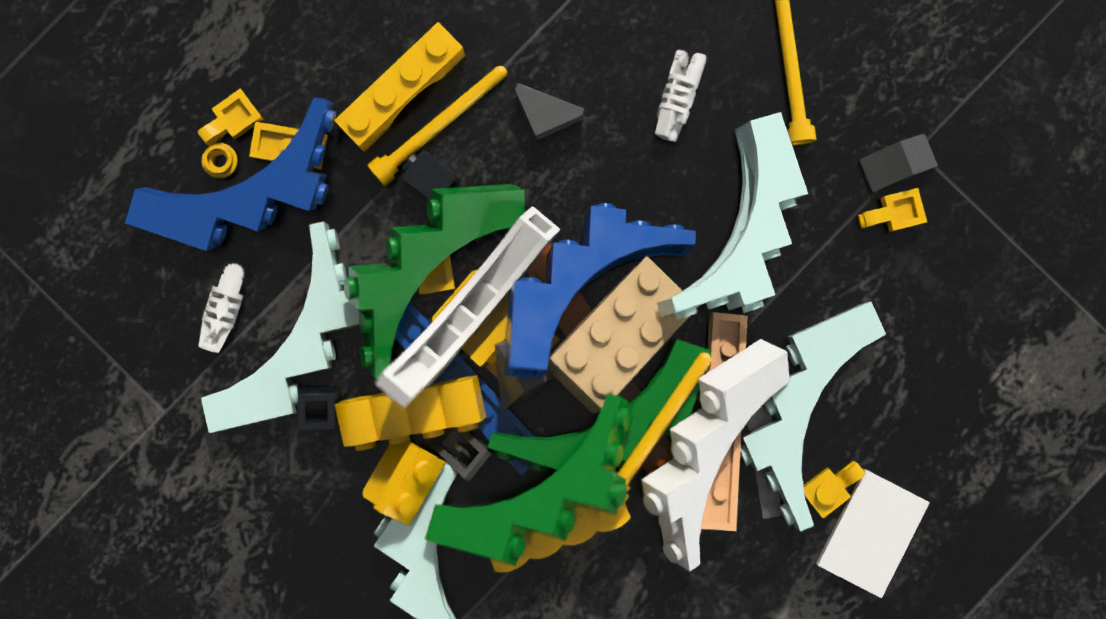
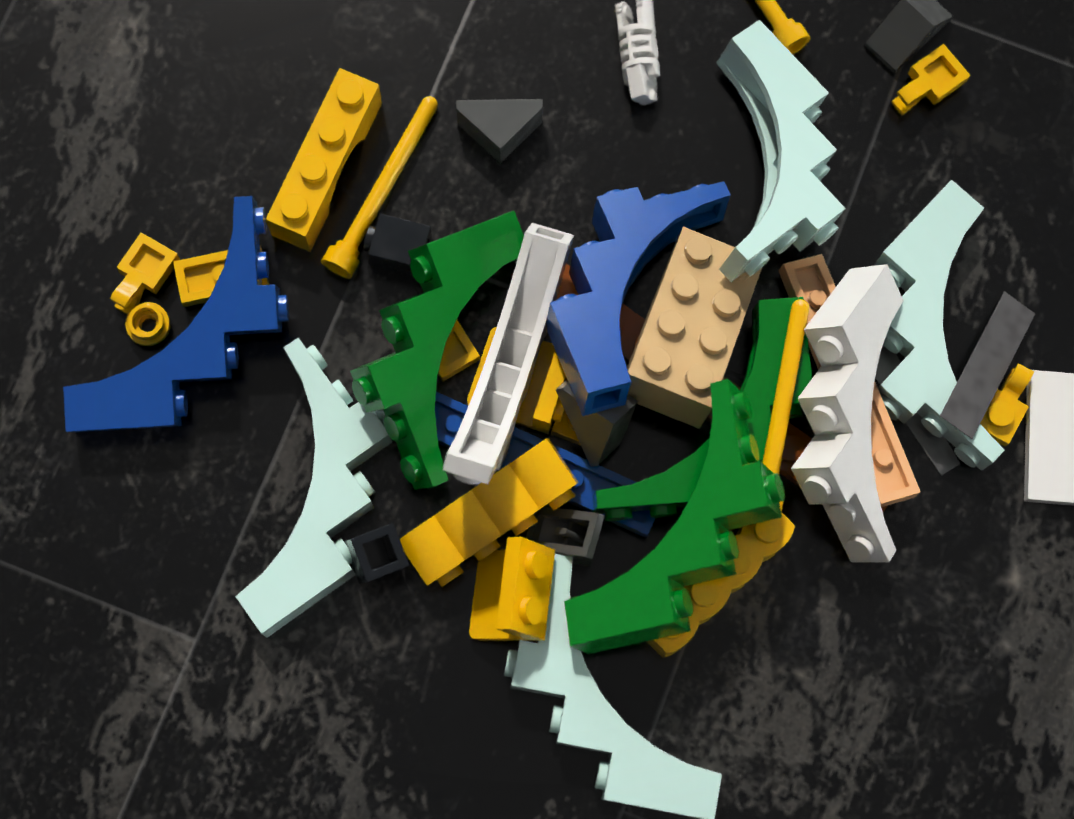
camera: 30 degrees left, 10 degrees down
(221, 309) = (217, 488): white hinge -> none
(833, 454) = (987, 365): none -> flat silver sticker

